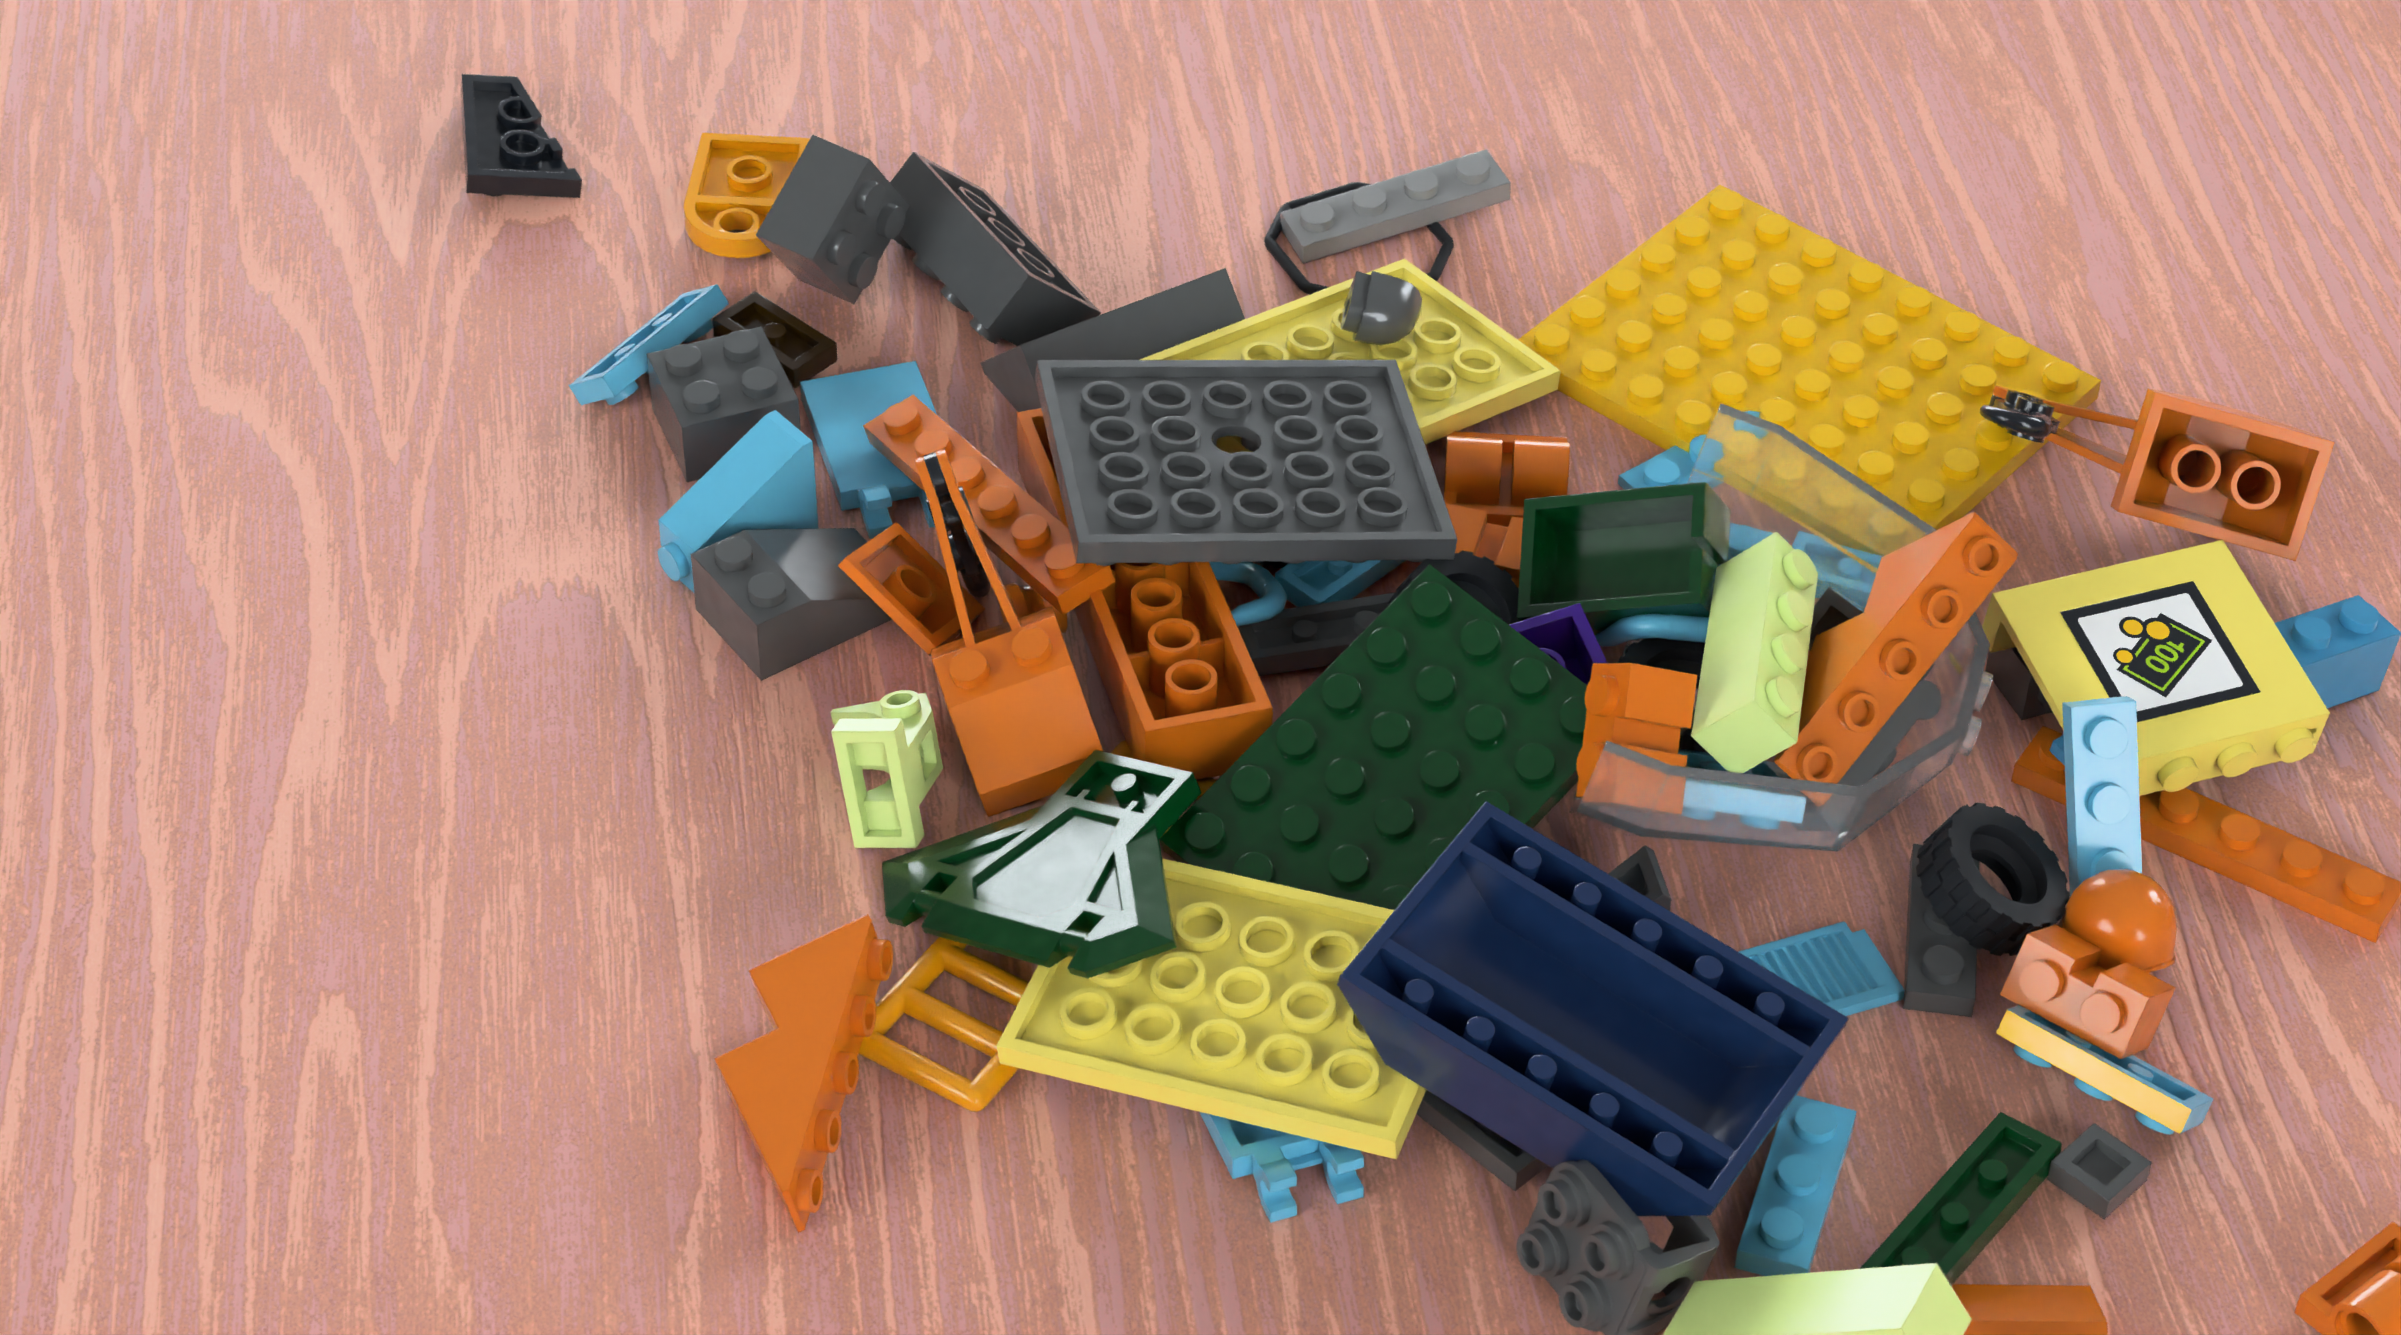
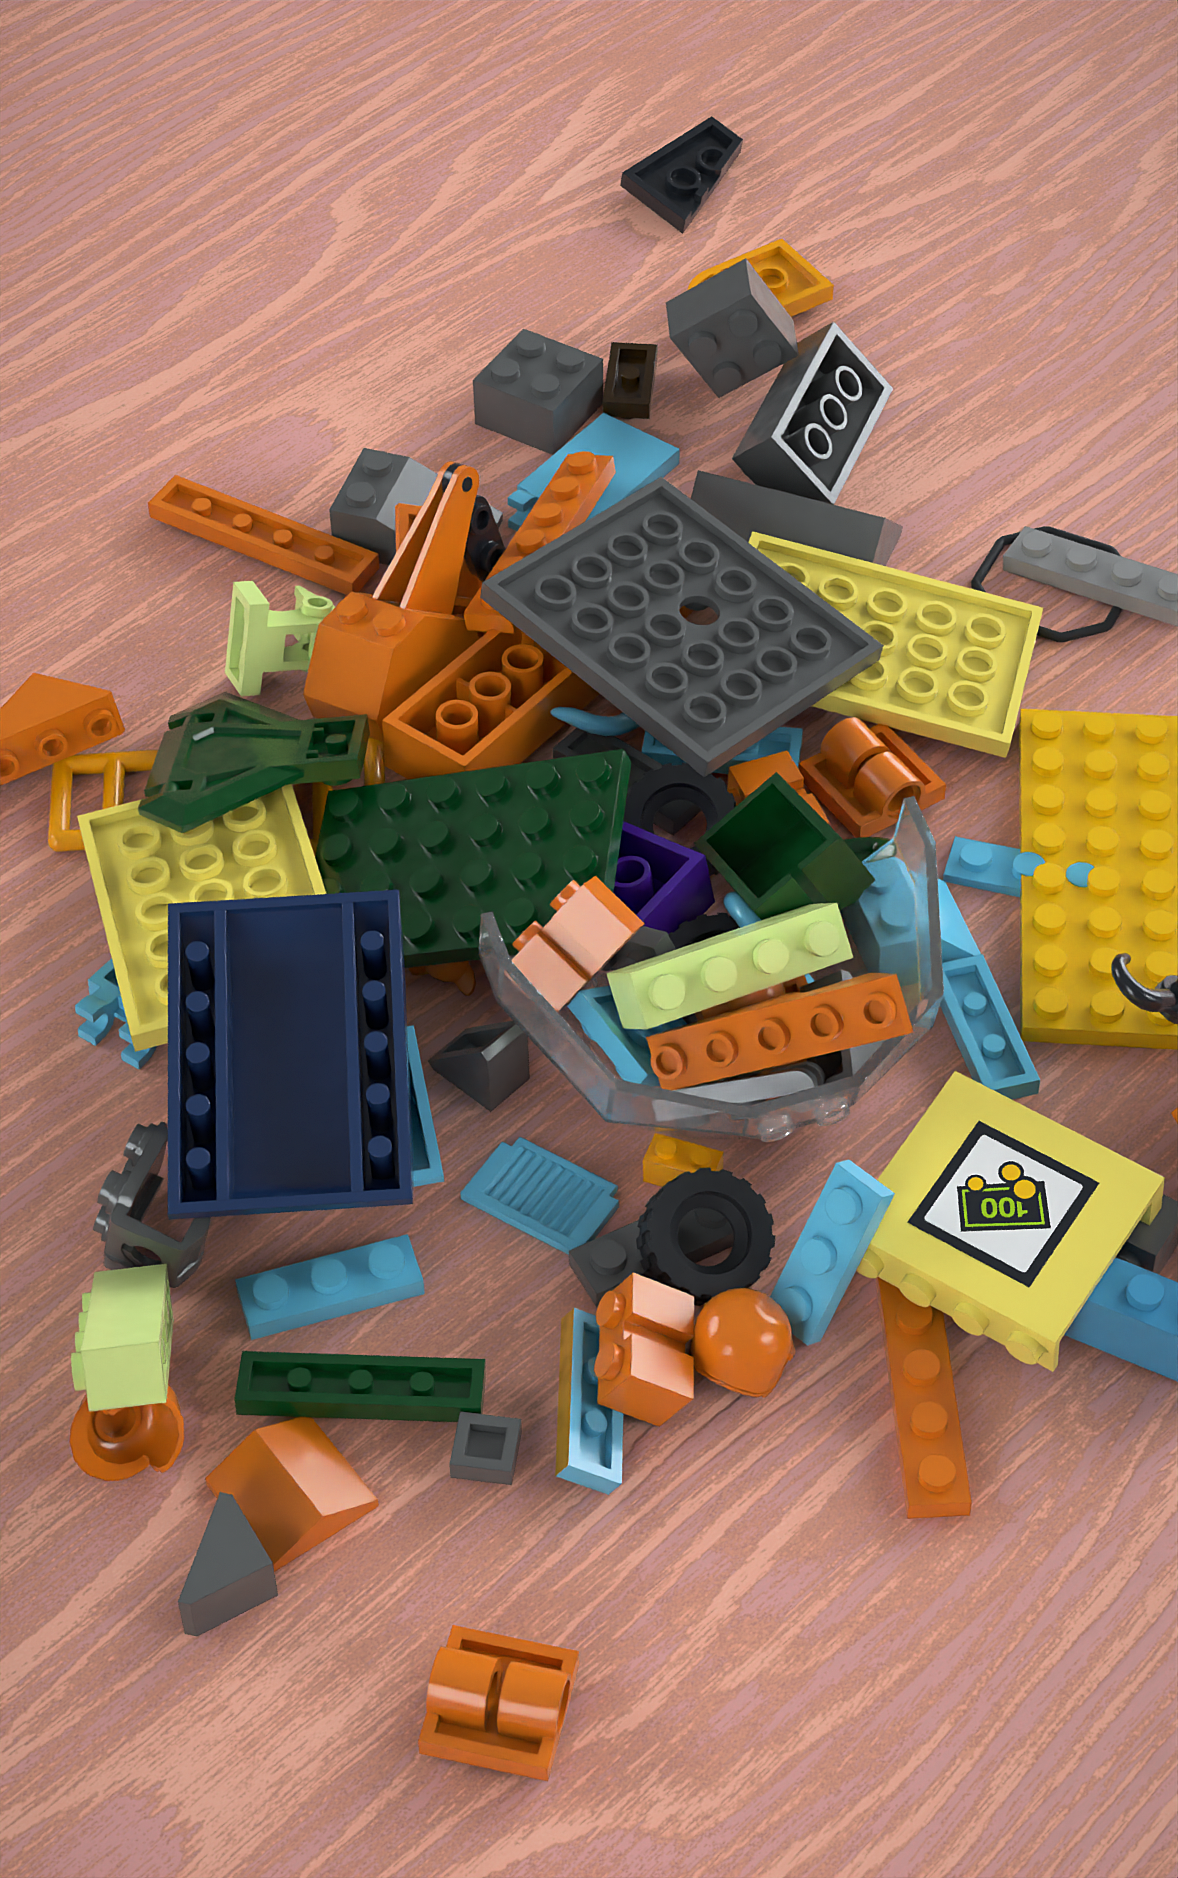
camera: 55 degrees right, 5 degrees up
(680, 321) = (569, 332): medium azure plate -> none
(690, 710) = (264, 535): none -> orange plate
(754, 486) = (453, 433): medium azure slope -> none
(1380, 308) = (937, 613): dark grey piece -> none
(1867, 862) = (671, 1157): none -> light orange piece

